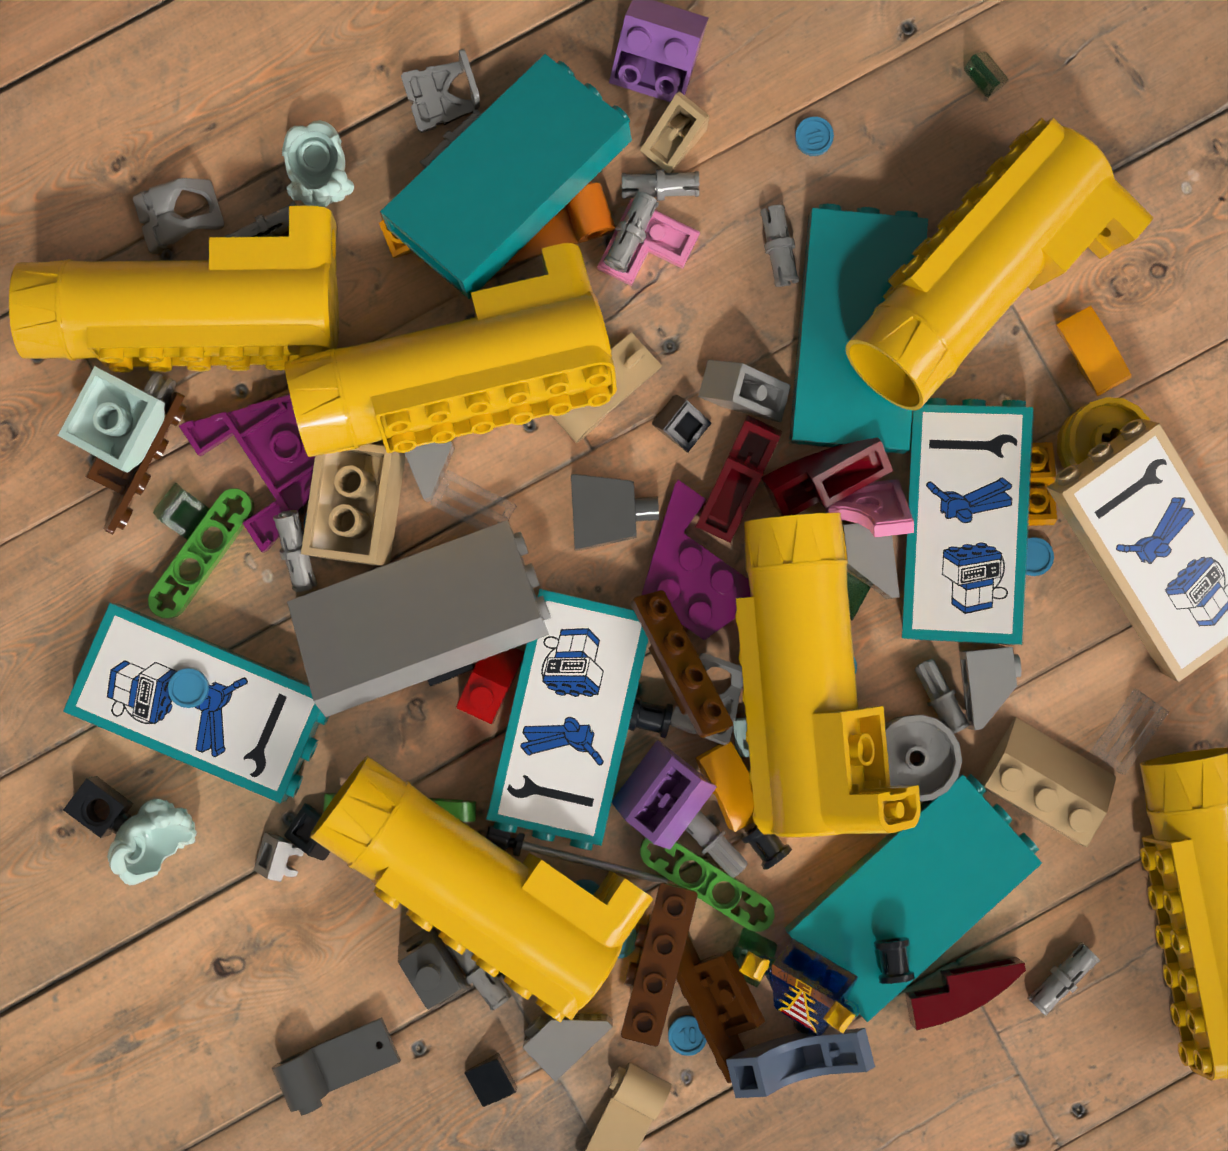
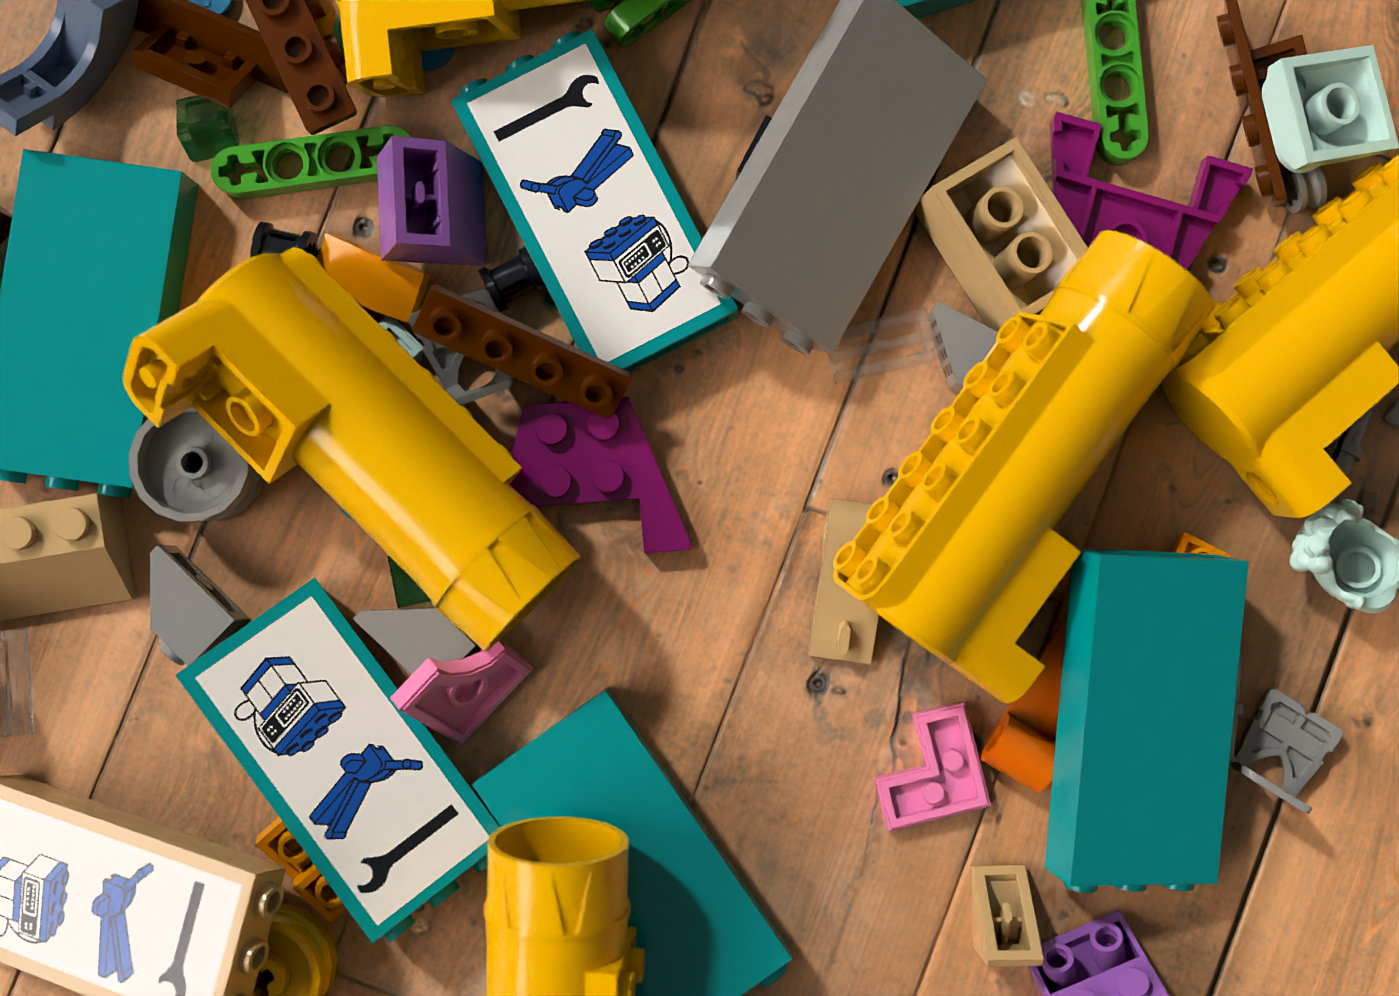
camera: 140 degrees right, 0 degrees up
(181, 511) = (1172, 88): slope -> none
(291, 541) = (1044, 151): light grey pin -> none
(490, 684) = (704, 166): red slope -> none
(504, 840) = (558, 25): flat silver piece -> none
(607, 511) = (737, 452): dark grey torso -> none
(631, 232) = (961, 769): light grey pin -> none
(661, 184) = (972, 846): light grey pin -> none
(681, 422) = (737, 613): black slope -> none
(716, 845) = (333, 205): light grey axle -> none
(739, 478) = (628, 604): dark red slope -> none
(744, 390) = (701, 702): light grey slope -> none
(779, 246) = (792, 888): light grey pin -> none
(806, 987) = (108, 129): torso -> none
(826, 476) = (536, 683): dark red slope -> none
(894, 960) = (41, 230): black bush -> none
(941, 697) = (225, 552): light grey axle -> none
(1039, 557) = (242, 790): dark azure piece -> none

